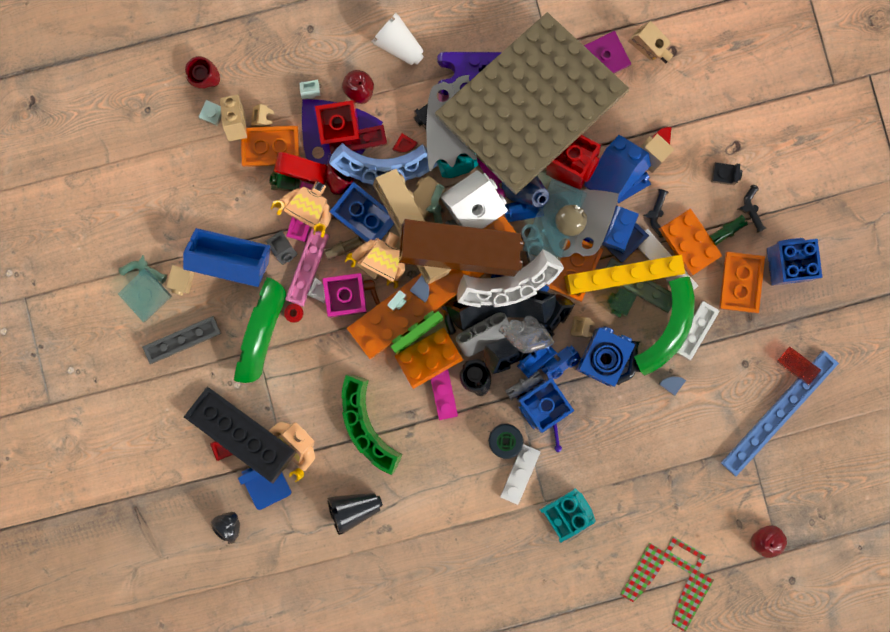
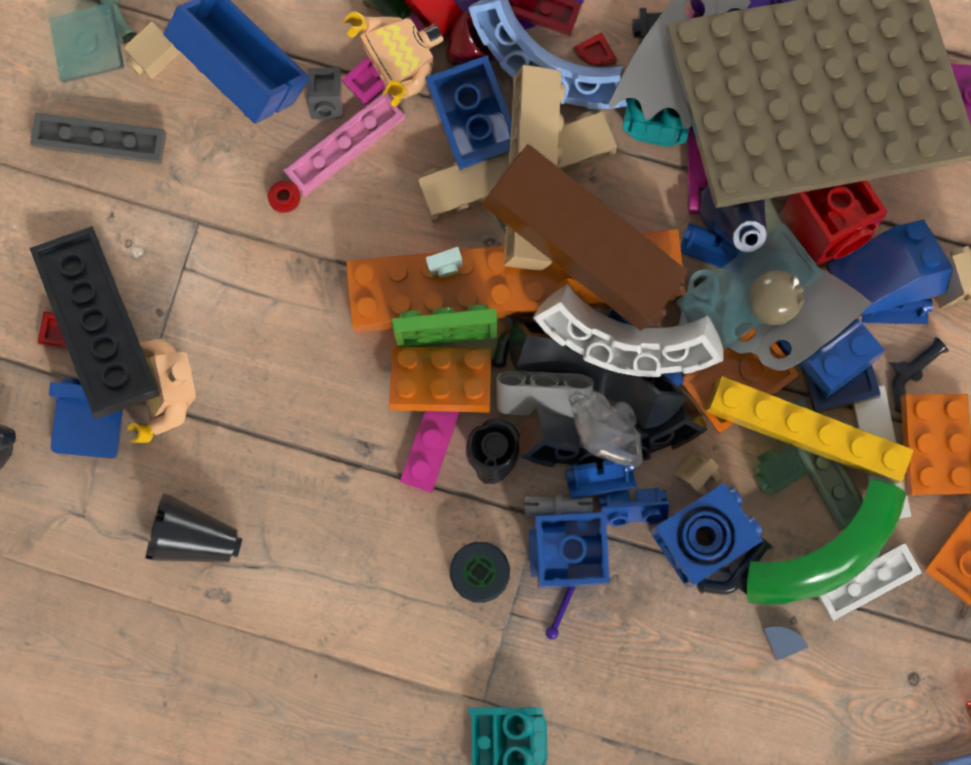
camera: 30 degrees right, 5 degrees down
(259, 332) = (215, 191): green brick -> none
(317, 291) = (339, 187): white tile -> none
(343, 247) = (414, 145): dark tan axle -> none
(345, 295) = (373, 213): dark pink brick -> none
(361, 429) = (277, 419): green brick -> none
(370, 285) = (420, 223): dark orange hand -> none
(380, 258) = (458, 188): light nougat torso -> none
(421, 289) = (490, 268): sand blue tile -> none
(435, 208) = (583, 163): sand green piece -> none
(474, 201) = (649, 188): white brick -> none
(520, 474) = (471, 636): white plate -> none

